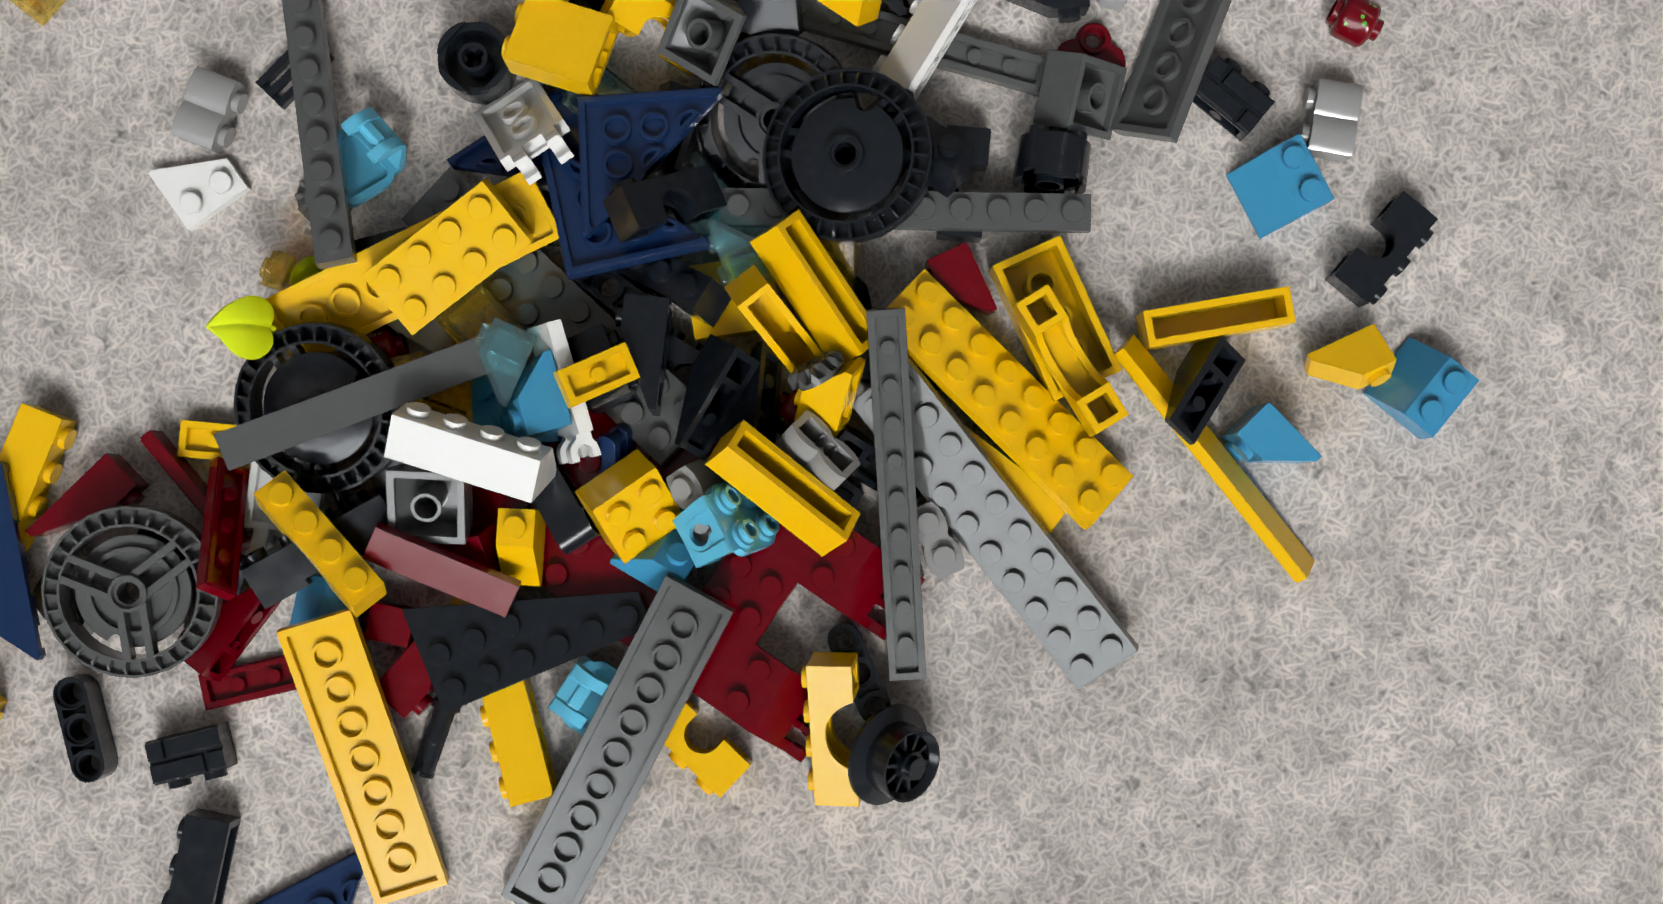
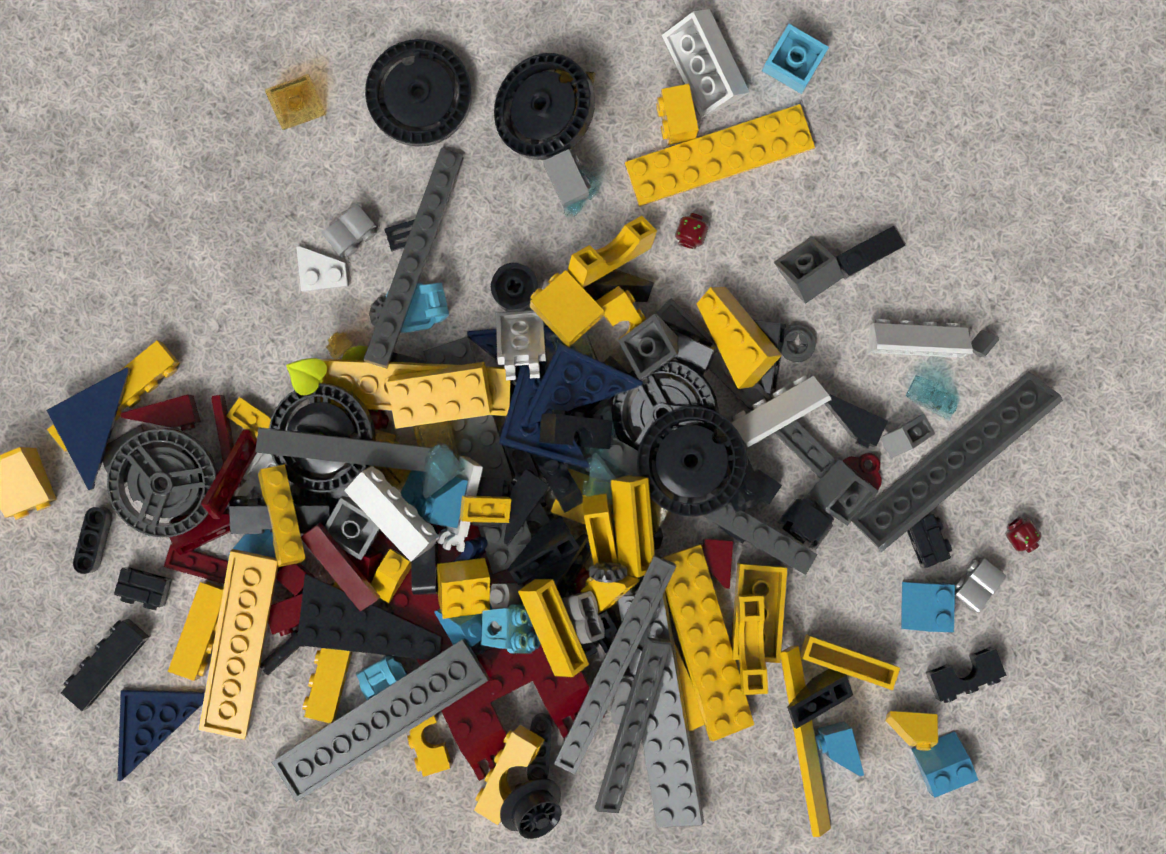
camera: 30 degrees right, 0 degrees up
(301, 777) = (198, 633): none -> yellow brick
(967, 564) = (632, 724): none -> dark grey tile

